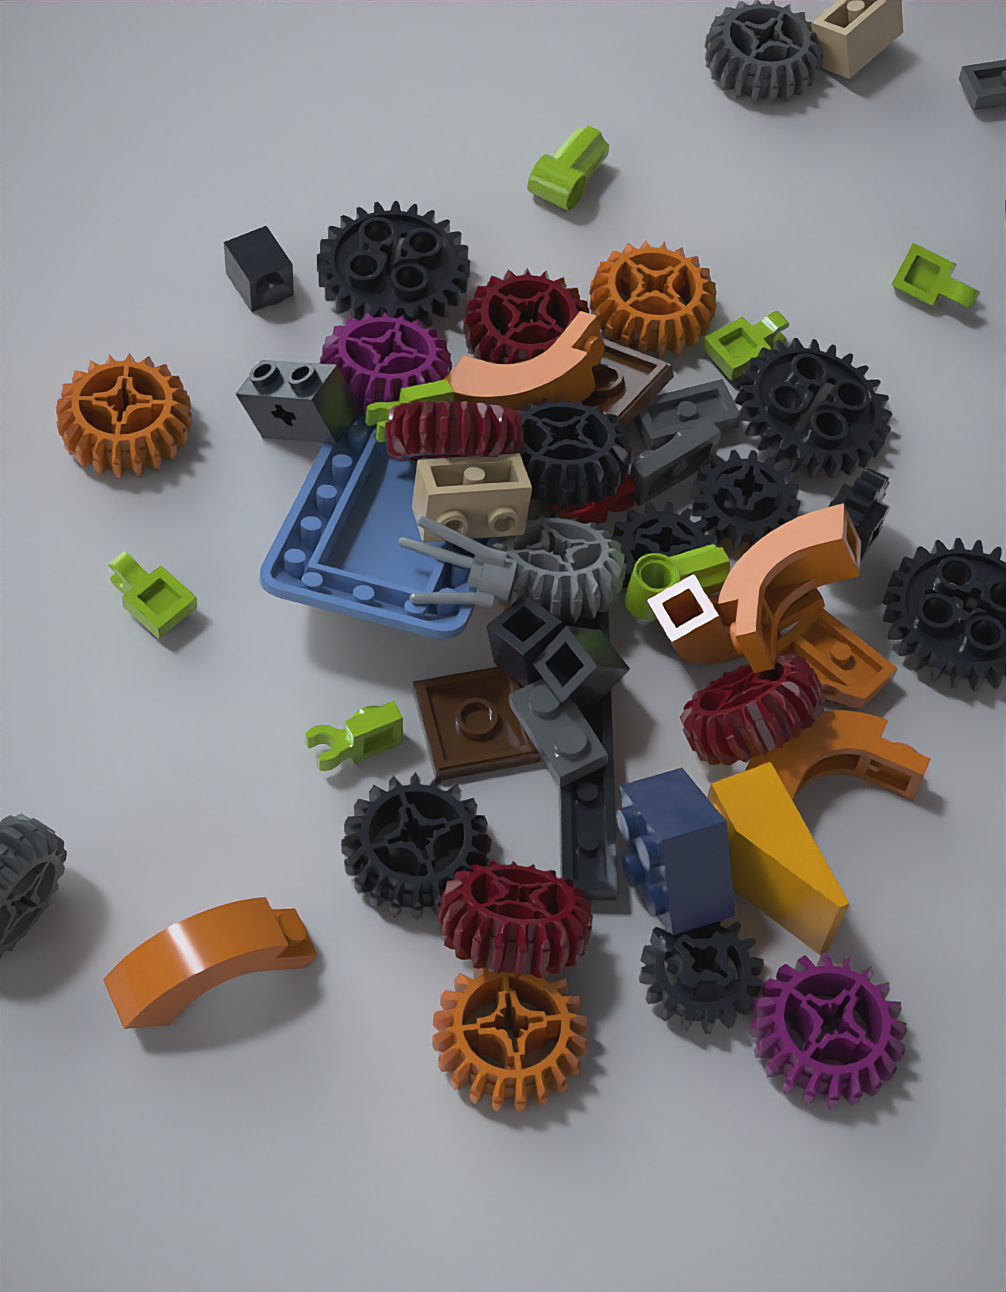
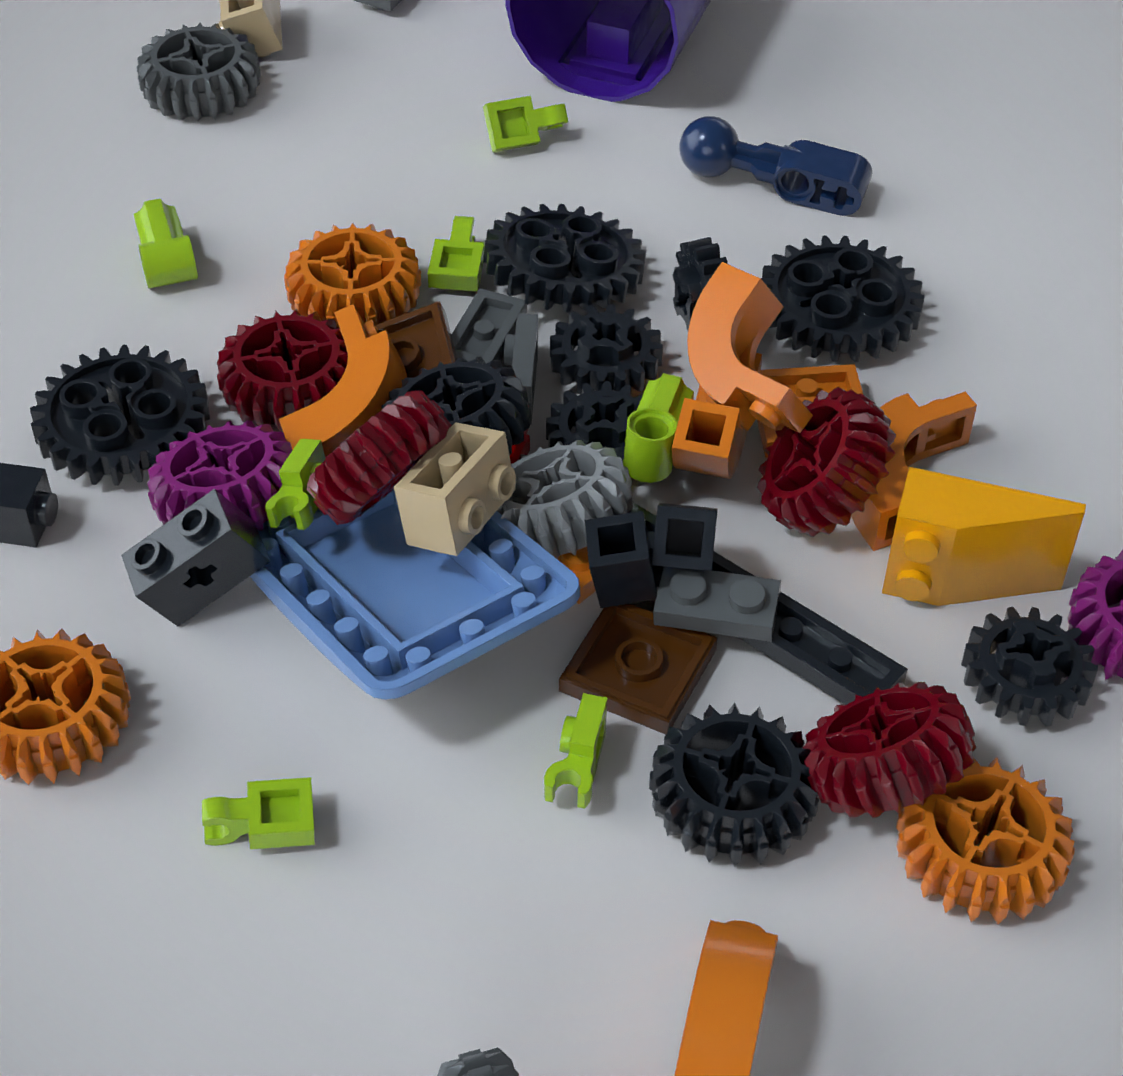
camera: 45 degrees left, 10 degrees down
(489, 568) = (549, 526): light grey plant -> none
(676, 851) = (925, 589): dark blue brick -> none

